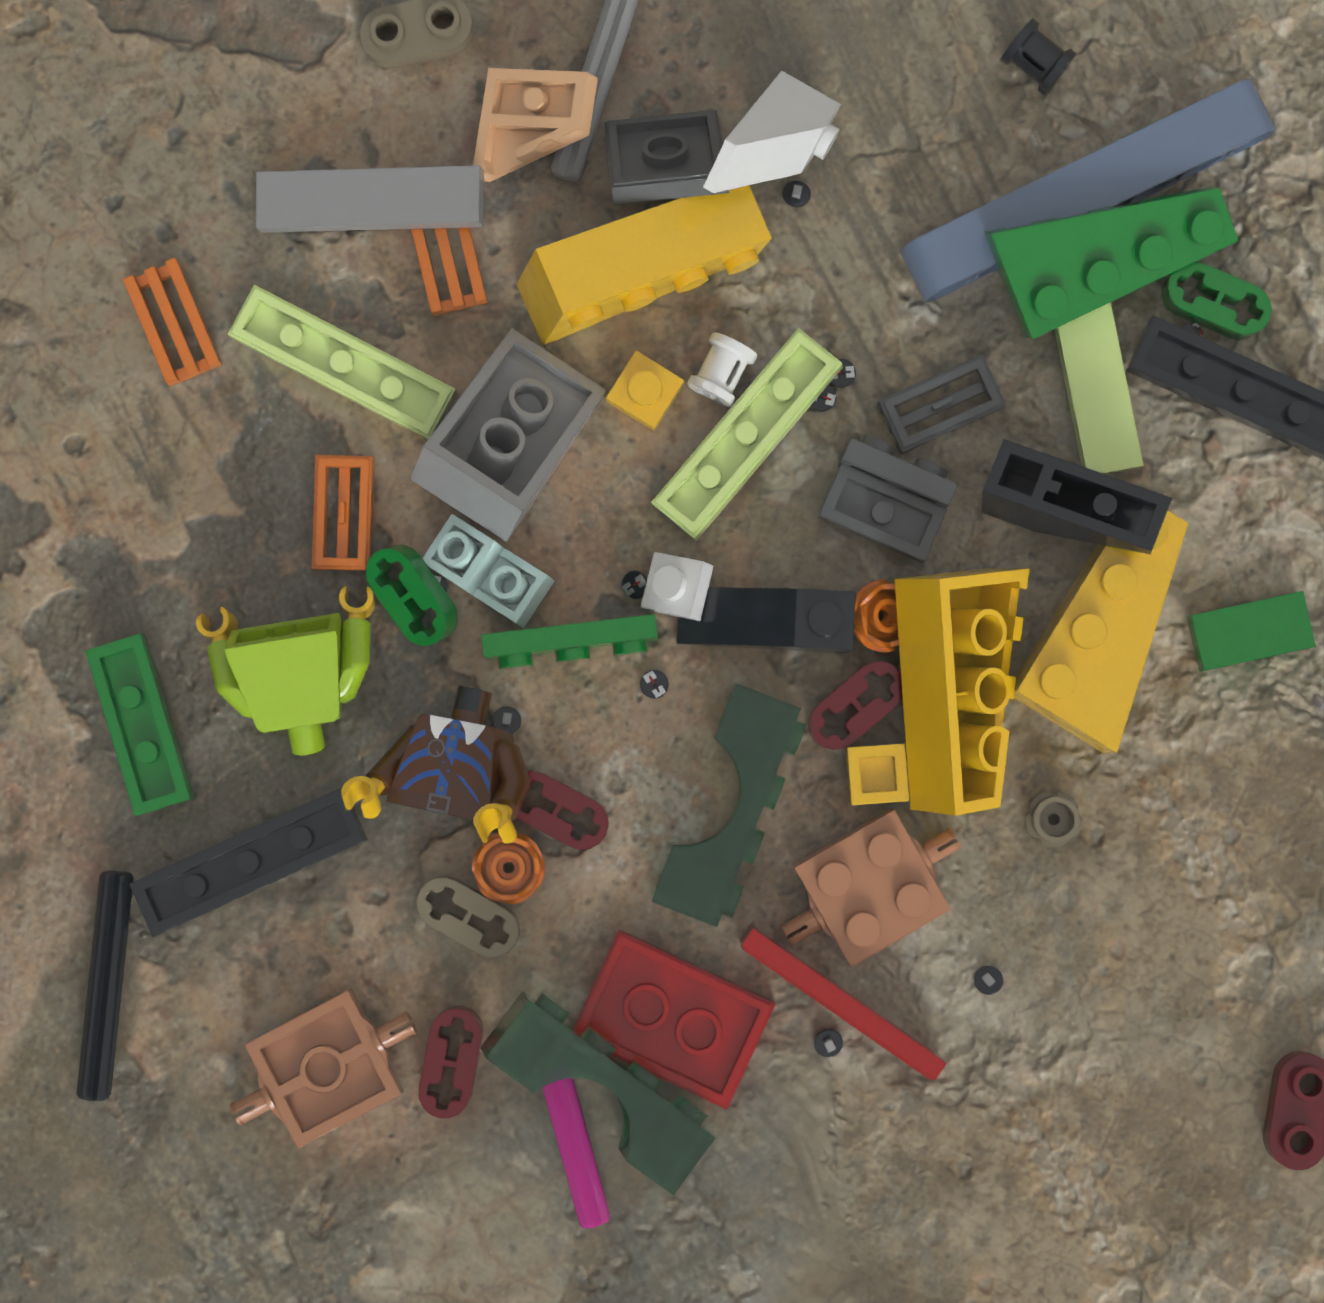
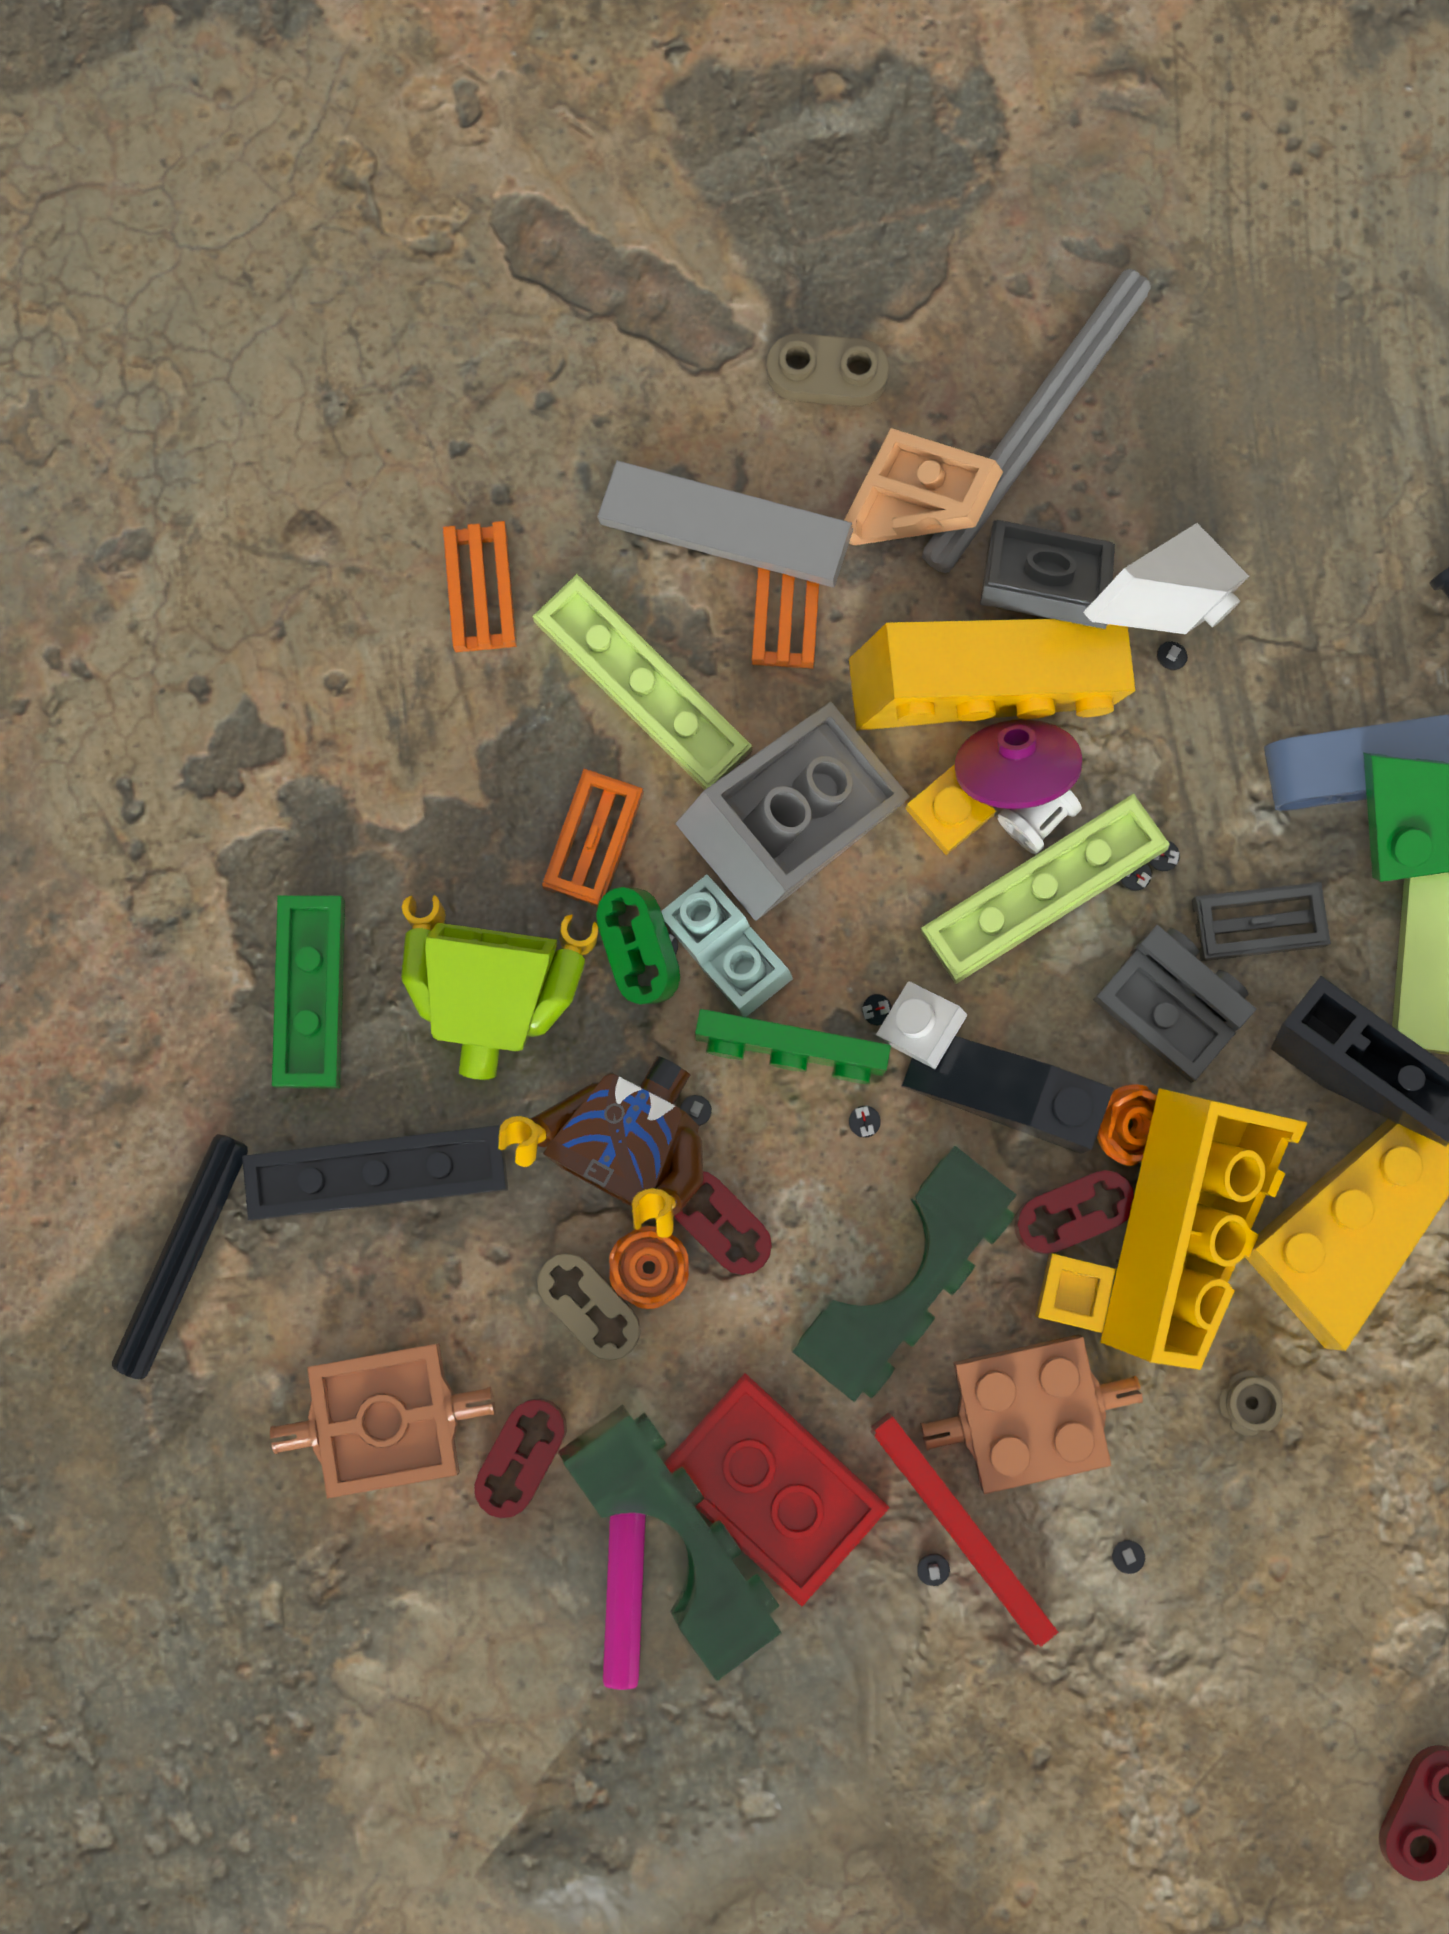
camera: 20 degrees right, 5 degrees down
(690, 333) = (1018, 764): none -> magenta dish

